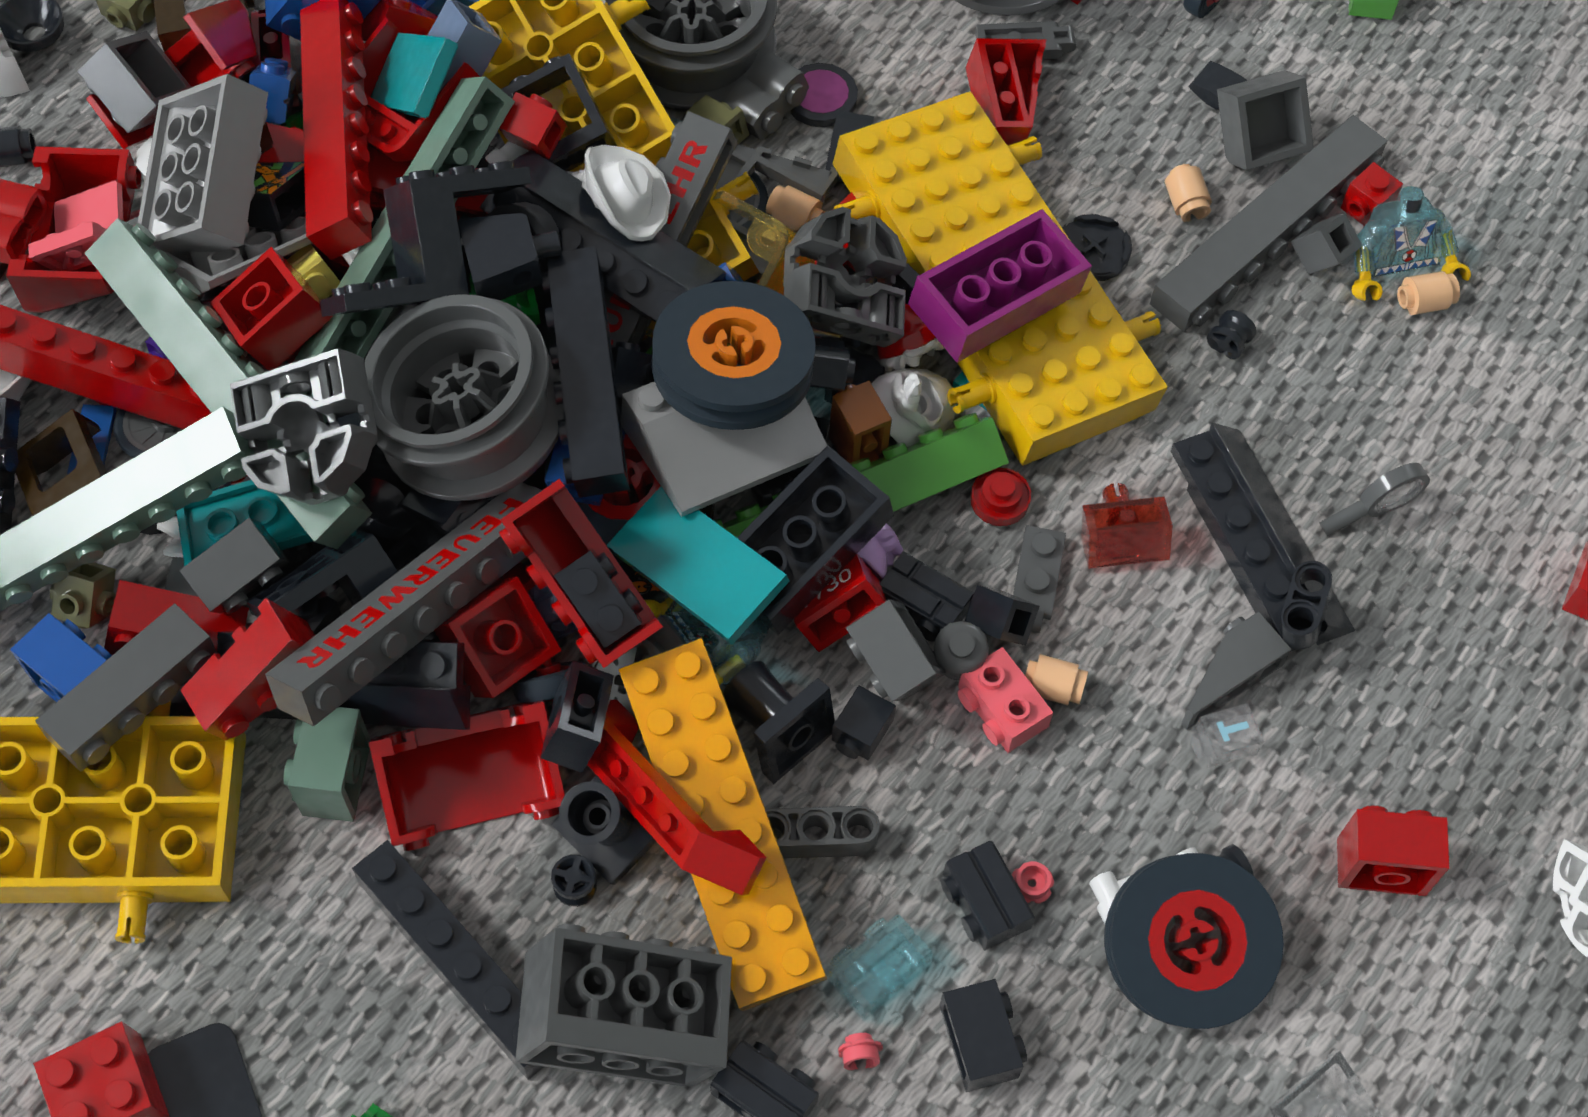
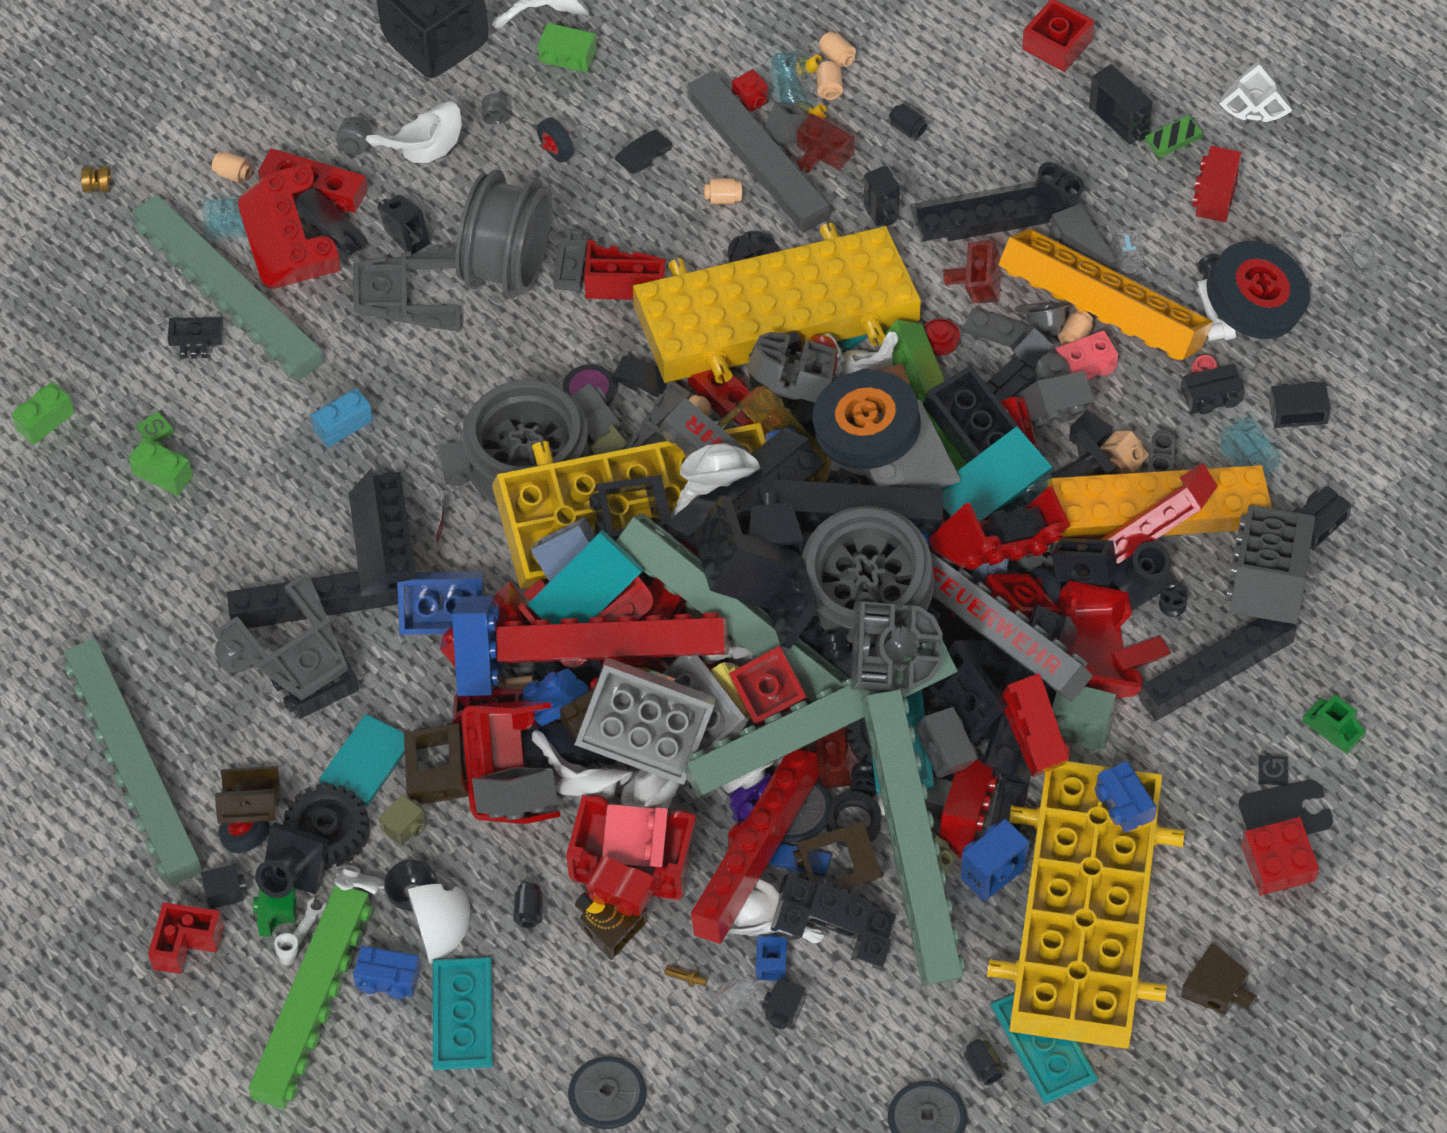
camera: 75 degrees left, 5 degrees down
(127, 688) = (1025, 808): dark grey brick -> none
(156, 827) = (1125, 796): none -> blue brick
(278, 1069) = (1272, 770): none -> black tile
(473, 846) = (1141, 654): none -> red piece
(533, 124) = (654, 507): red brick -> none
(830, 772) = (1125, 451): none -> light nougat brick
(858, 1047) = (1298, 469): coral plate -> none
(999, 285) = (815, 285): magenta brick -> none
(1071, 626) = (1045, 316): none -> dark grey piece
(1120, 709) = (1105, 294): none -> light orange brick
(1224, 376) = (881, 196): none -> black brick
(1231, 334) = (841, 190): black wheel -> none
(1265, 119) = (683, 131): dark grey piece -> none
(1305, 297) = (824, 143): none -> clear red brick
(1382, 496) = (979, 138): dark grey piece -> none
(1388, 403) = (908, 121): none -> black brick
(1486, 785) = (1173, 136): none -> bright green tile
(1490, 295) = (837, 49): none -> light nougat brick
(1507, 685) = (1120, 104): none -> black window

